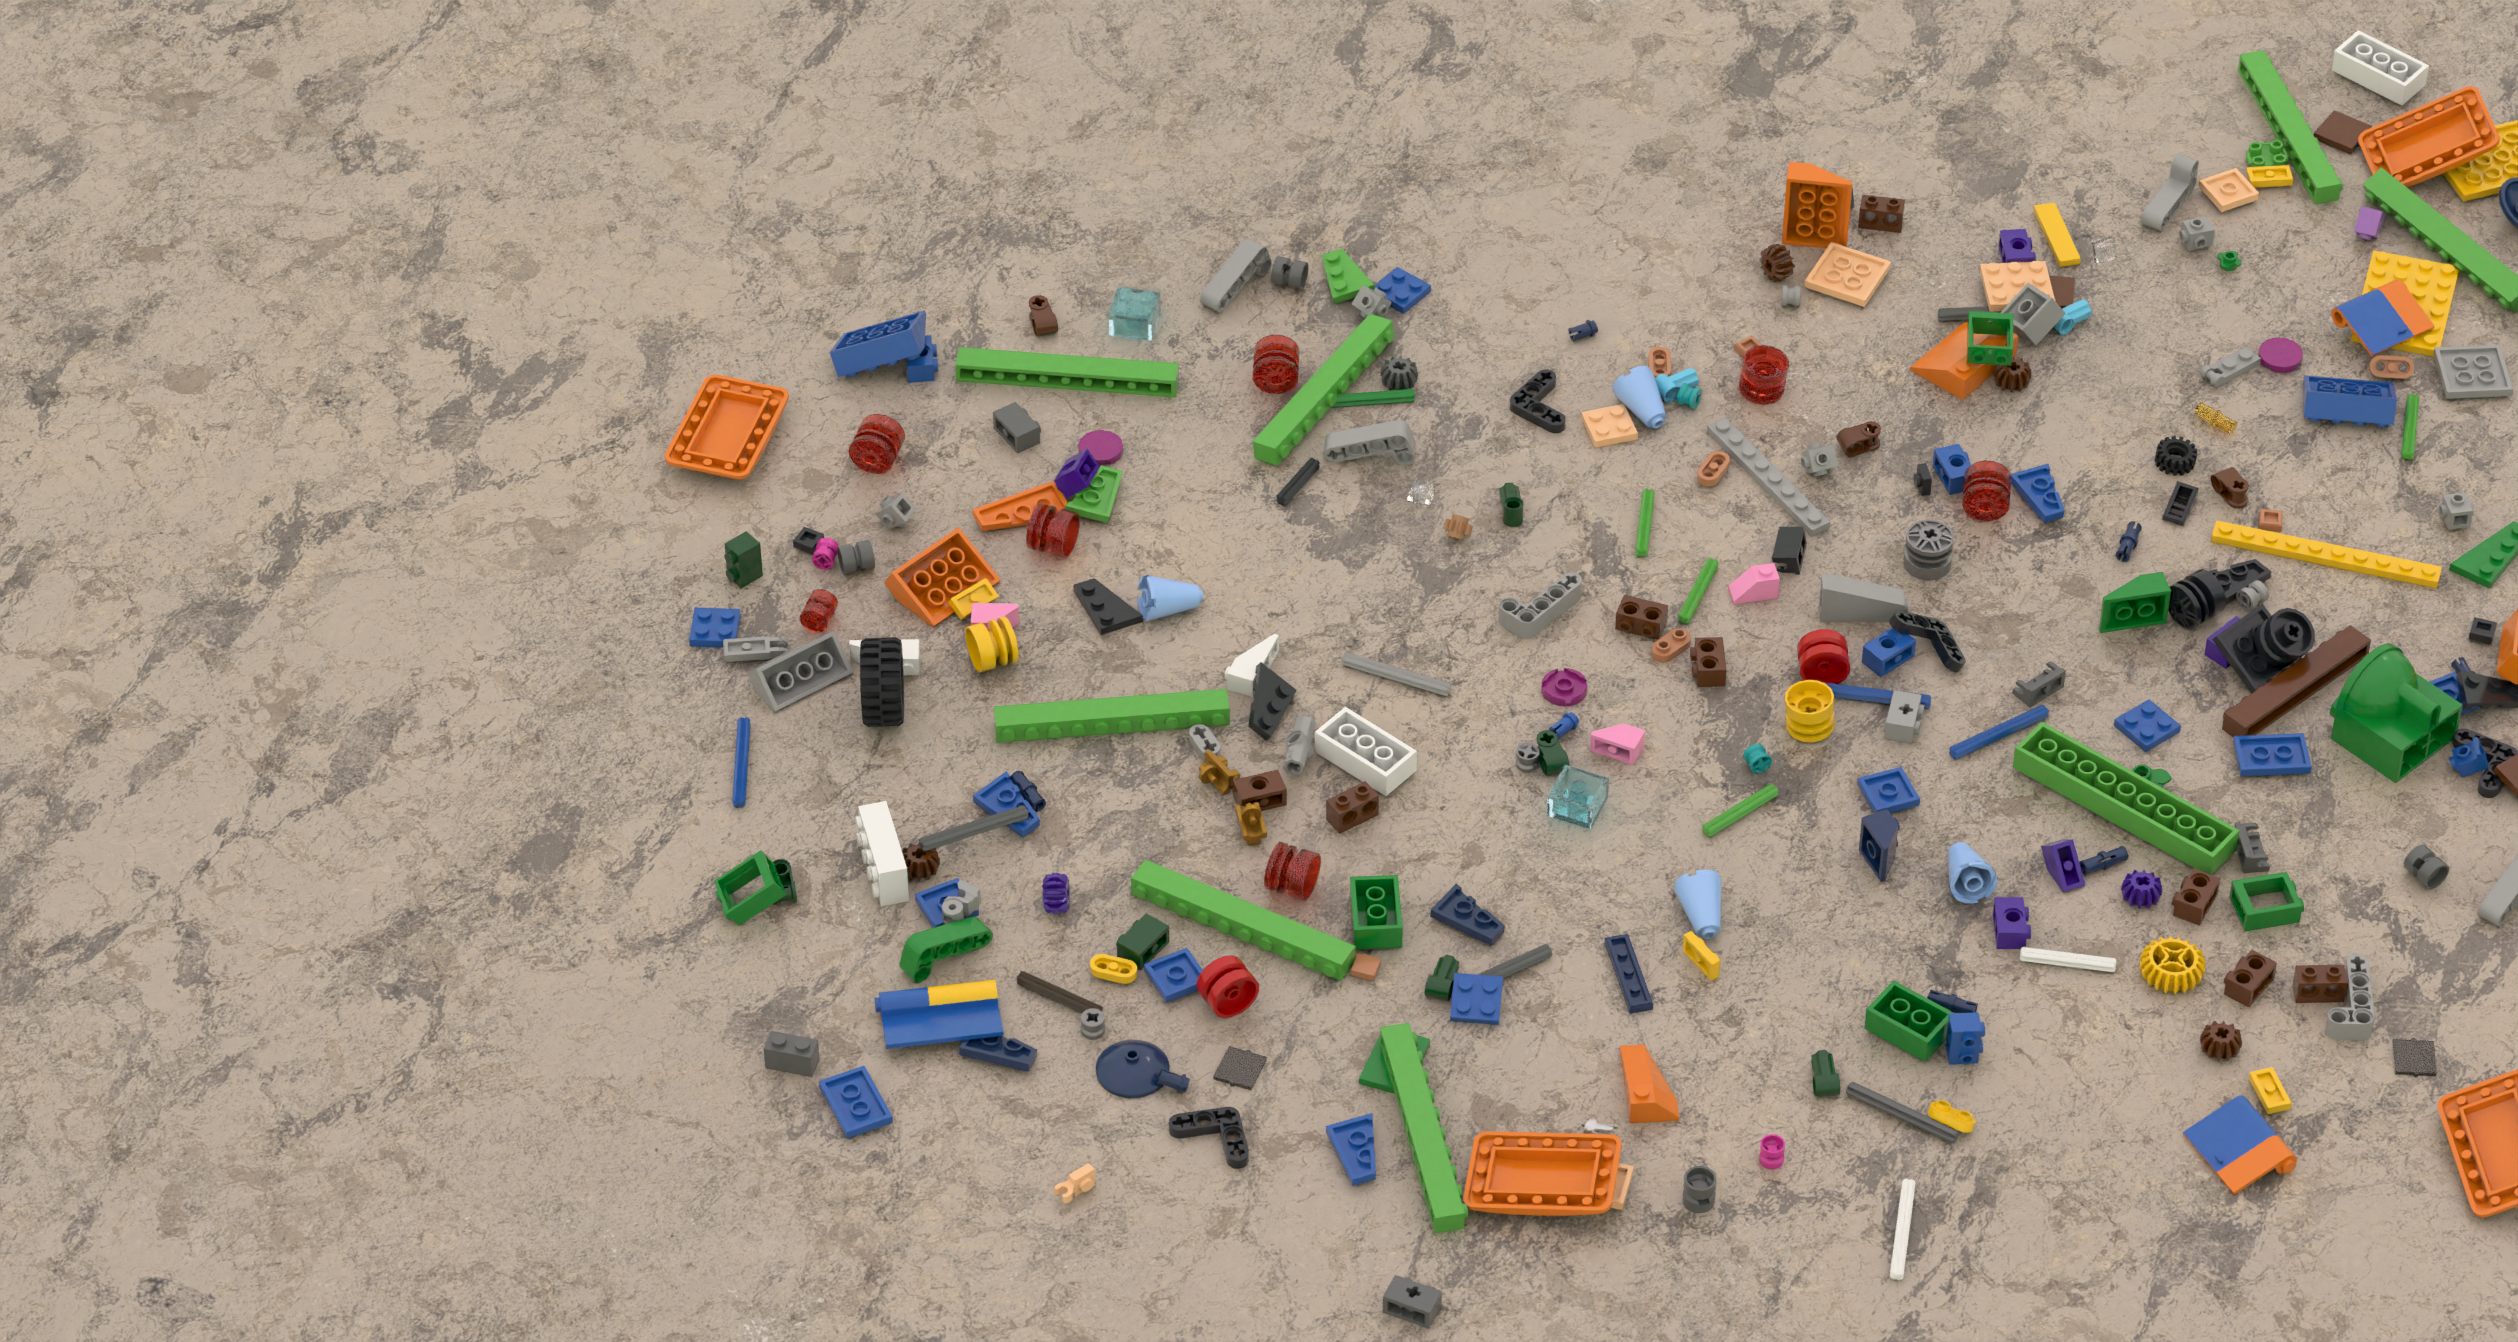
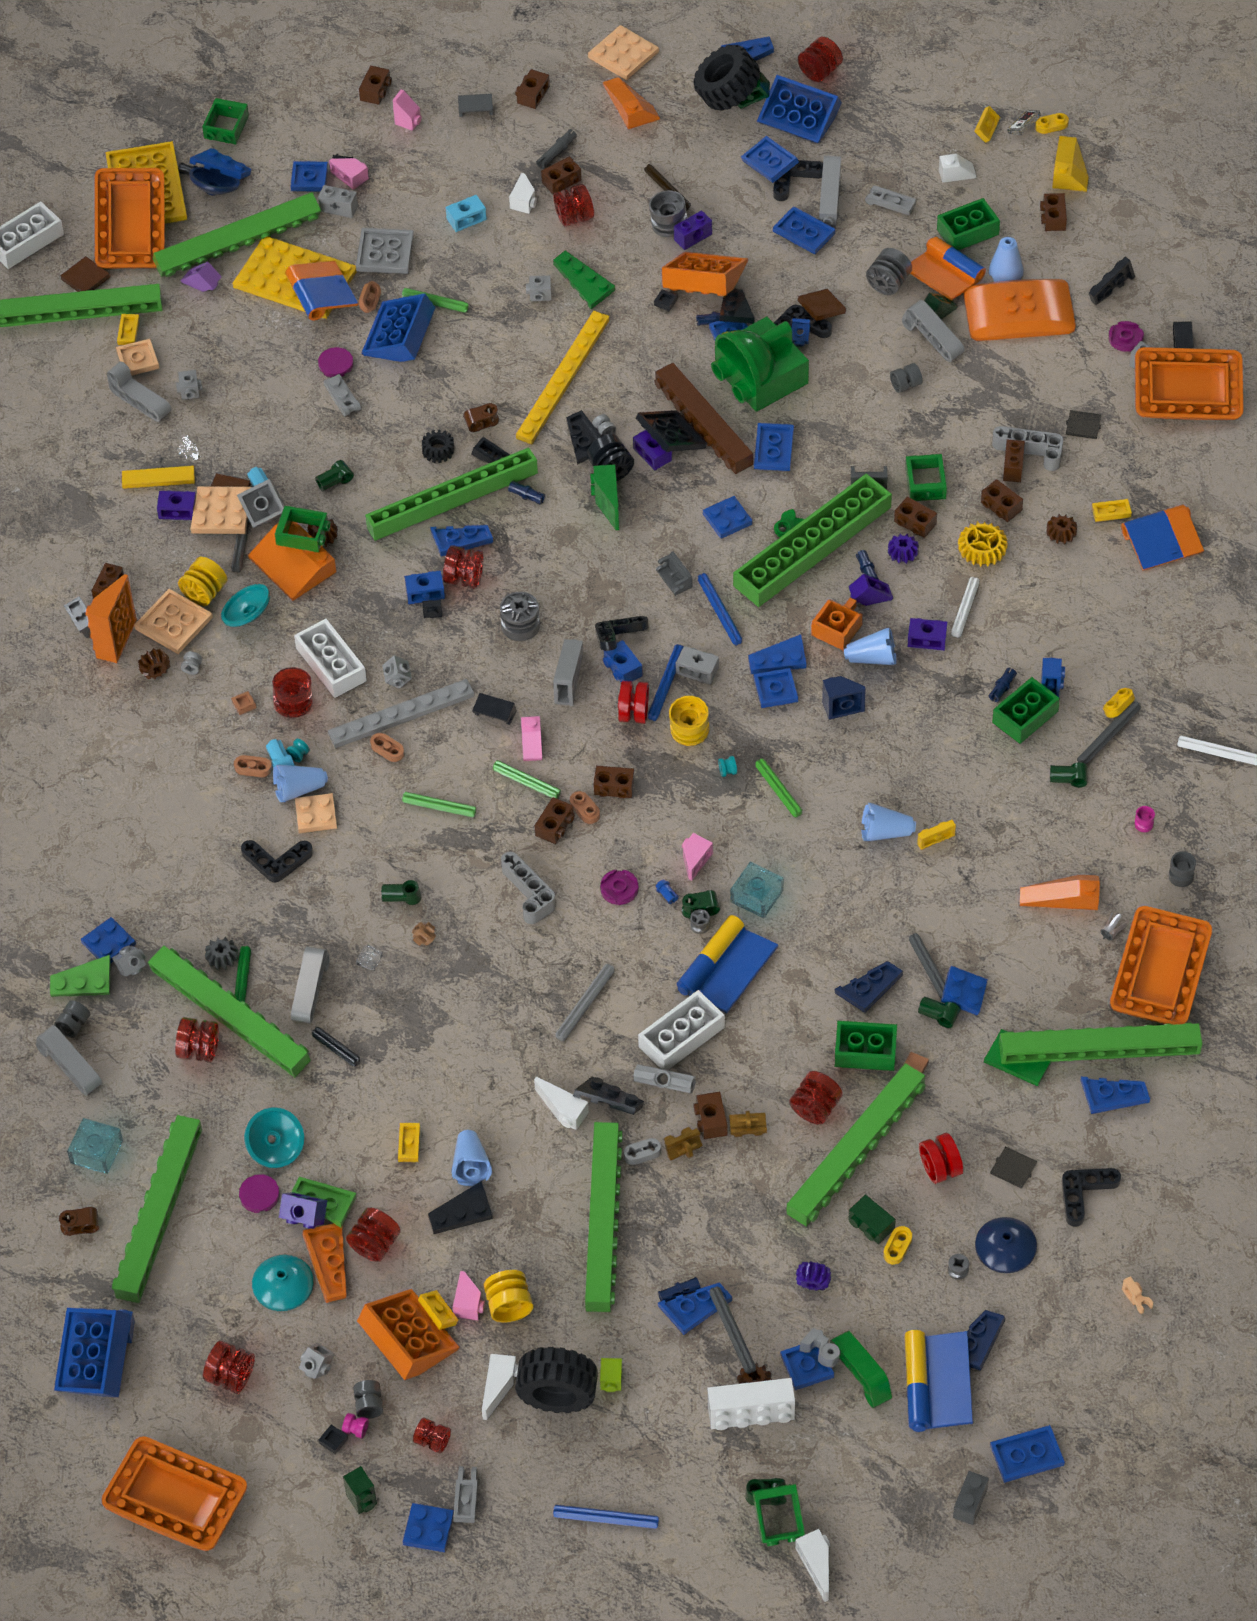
camera: 80 degrees left, 10 degrees up
(701, 933) = (814, 1553): none -> white slope
(800, 671) = (502, 1458): light grey slope -> none
(911, 744) = (611, 1374): none -> lime brick
(993, 480) = (283, 1292): none -> teal dish
(1016, 427) = (222, 1255): dark grey brick -> none
(1055, 993) = (920, 1289): dark brown axle -> none
(1156, 434) = (287, 1136): none -> teal dish
(1173, 1080) = (1030, 1211): dark blue pin -> none
(1174, 974) = (910, 1199): blue plate -> none
(1182, 552) = (409, 1142): none -> yellow plate
(1352, 807) = (741, 1049): reddish brown brick -> none
(1471, 785) = (727, 964): none -> blue door
(1583, 330) = (195, 811): dark blue pin -> none
(1628, 973) = (943, 887): dark blue tile -> none
(1823, 401) = (330, 658): none -> white brick
(1858, 440) = (375, 642): reddish brown piece -> none
(1879, 325) = (246, 605): none -> teal dish
(1898, 280) = (202, 581): none -> yellow wheel
(1940, 794) = (779, 656): none -> blue wing
(2001, 833) = (837, 623): none -> orange hinge
(2100, 471) = (451, 494): none -> bright green brick
(2103, 377) = (337, 474): none -> dark green piece
(2215, 417) = (400, 414): clear yellow axle -> none
(2229, 260) = (219, 373): green plate -> none
(2267, 154) = (102, 326): bright green dish -> none
(2270, 520) = (518, 403): nougat tile -> none
(2284, 637) = (672, 408): black wheel -> none

